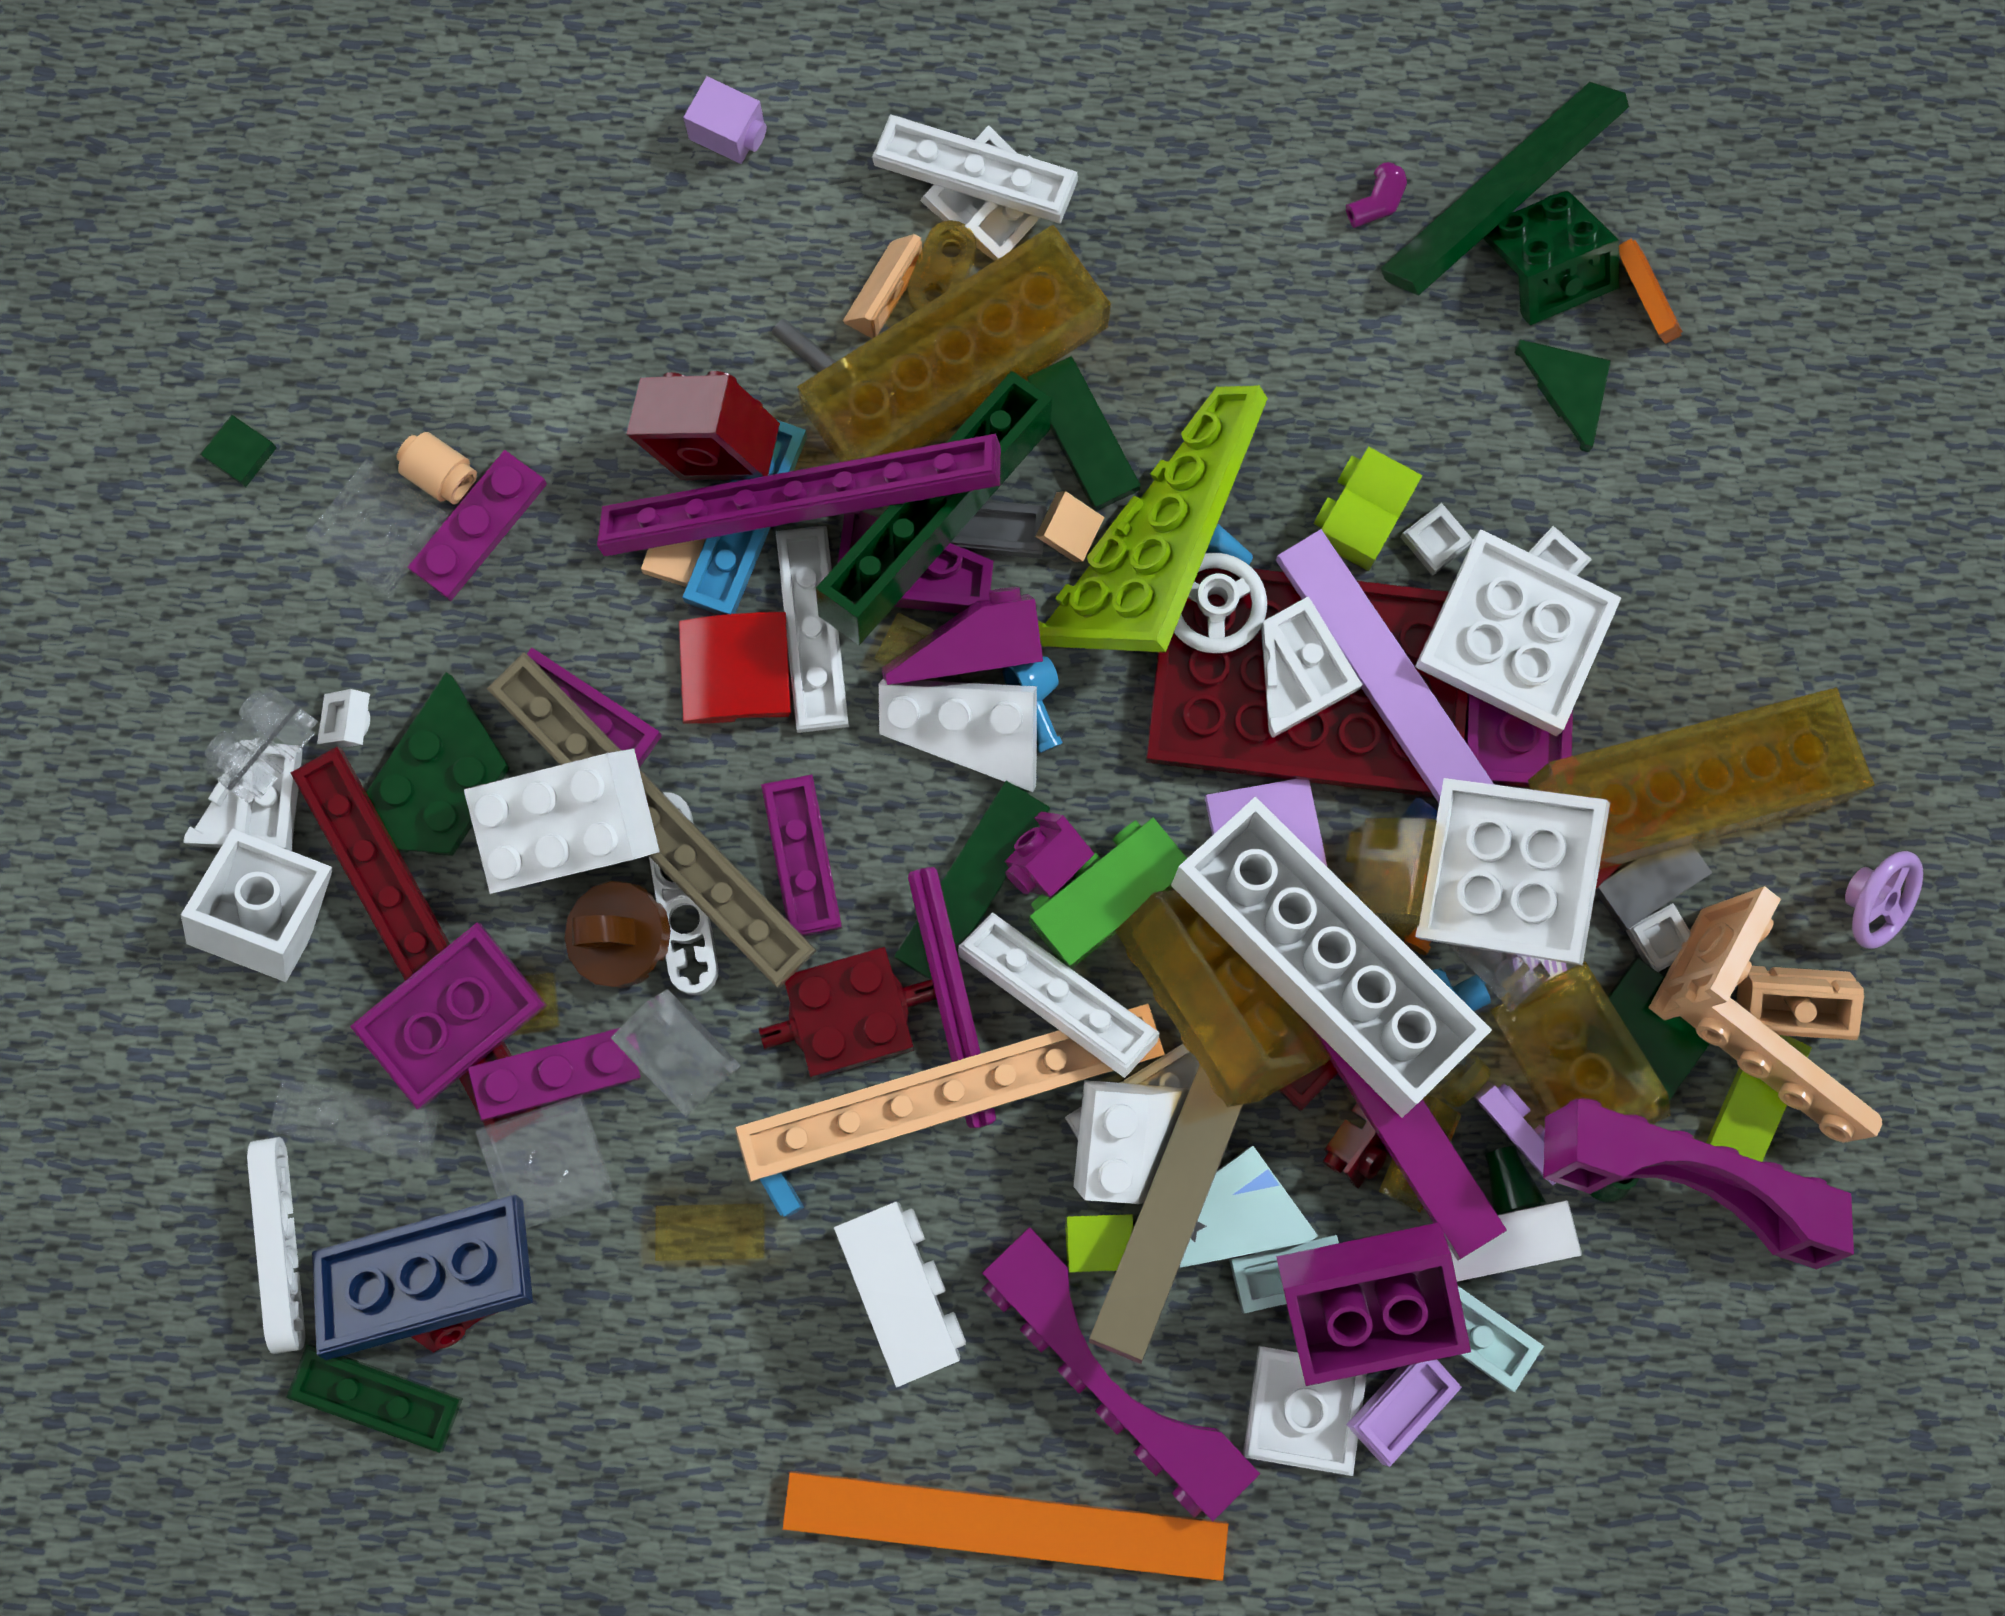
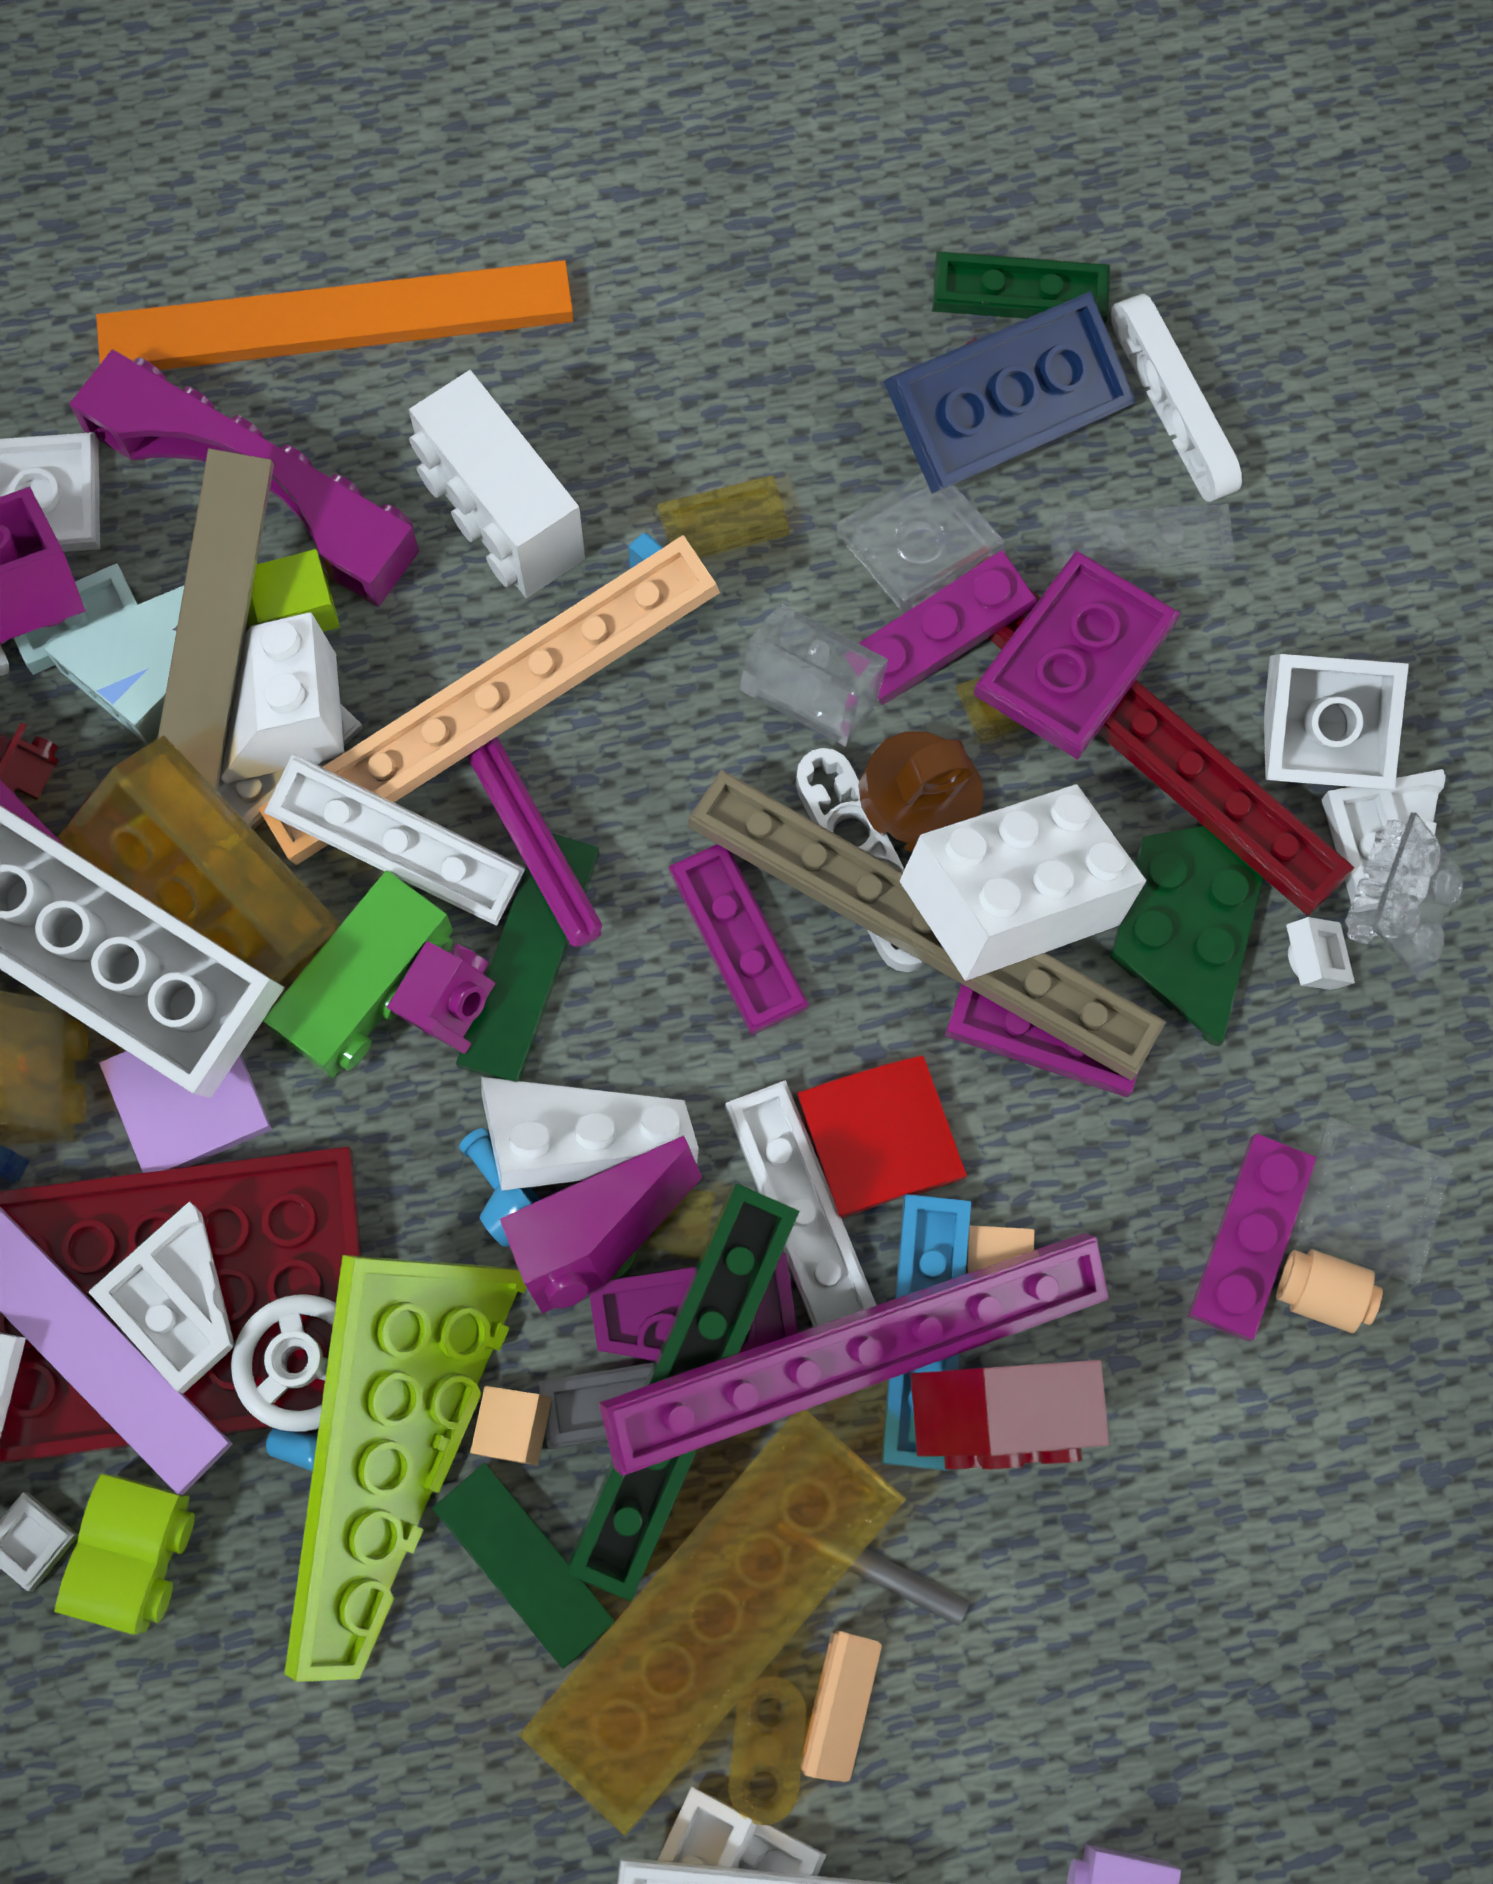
camera: 165 degrees right, 5 degrees down
(848, 1013) = (633, 774): dark red plate -> none

